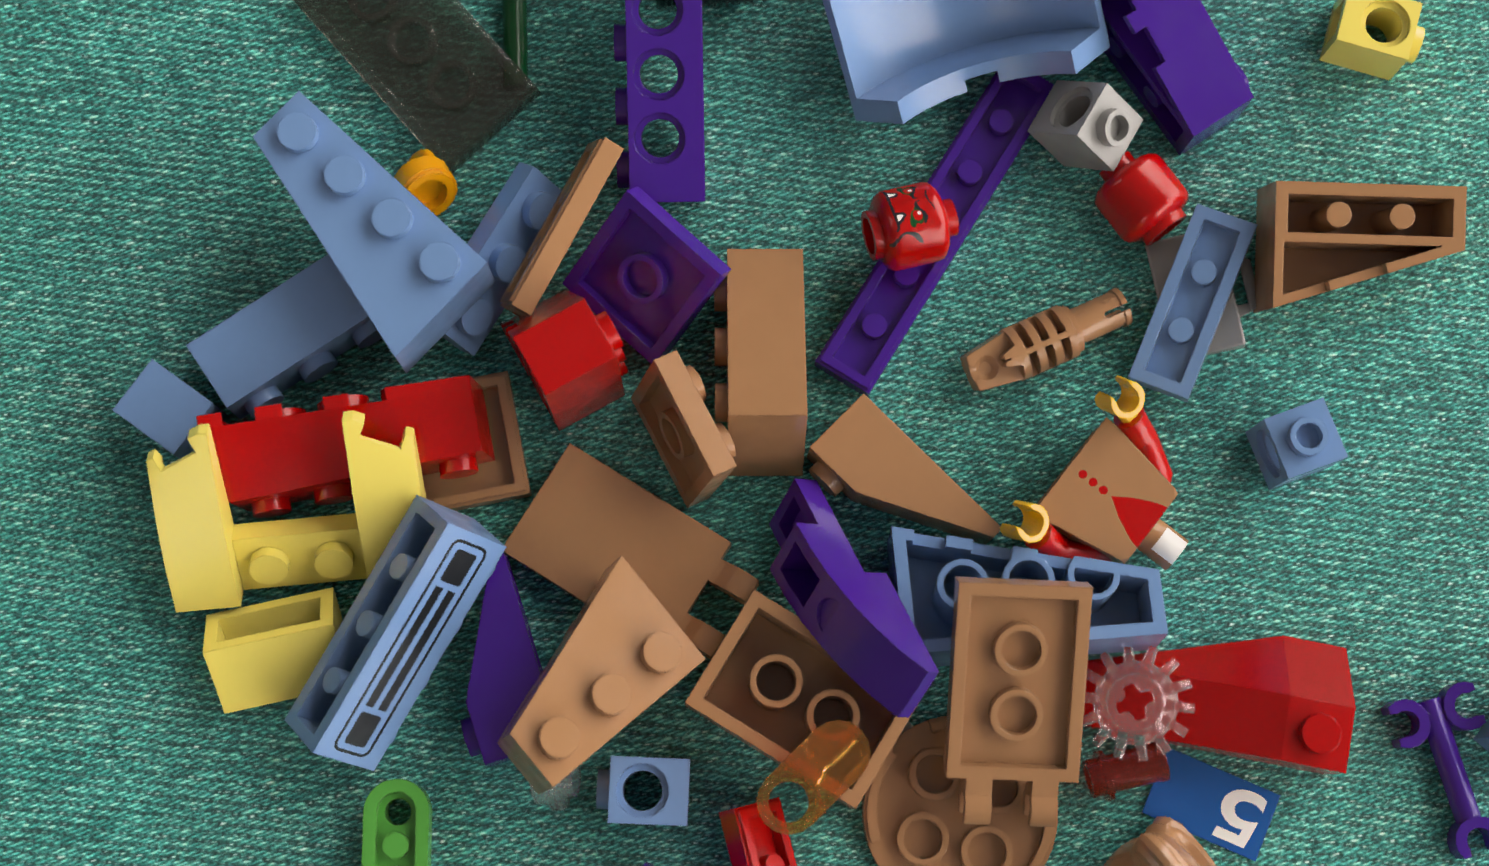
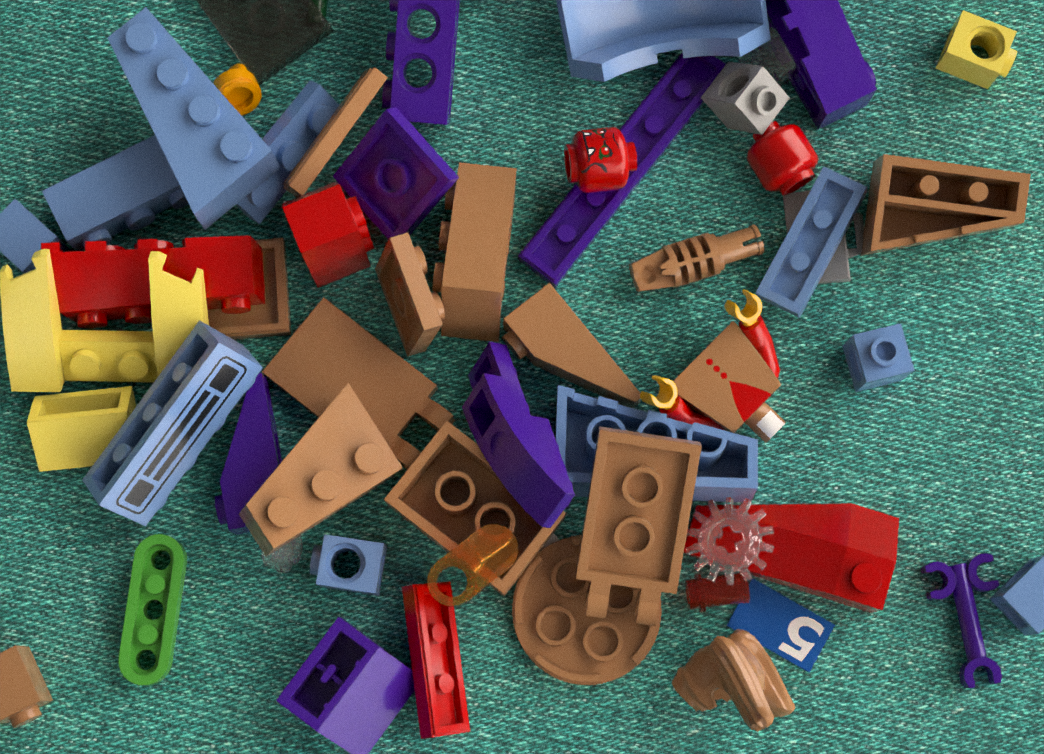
camera: 10 degrees right, 0 degrees up
(1115, 68) = (773, 57): none -> clear slope

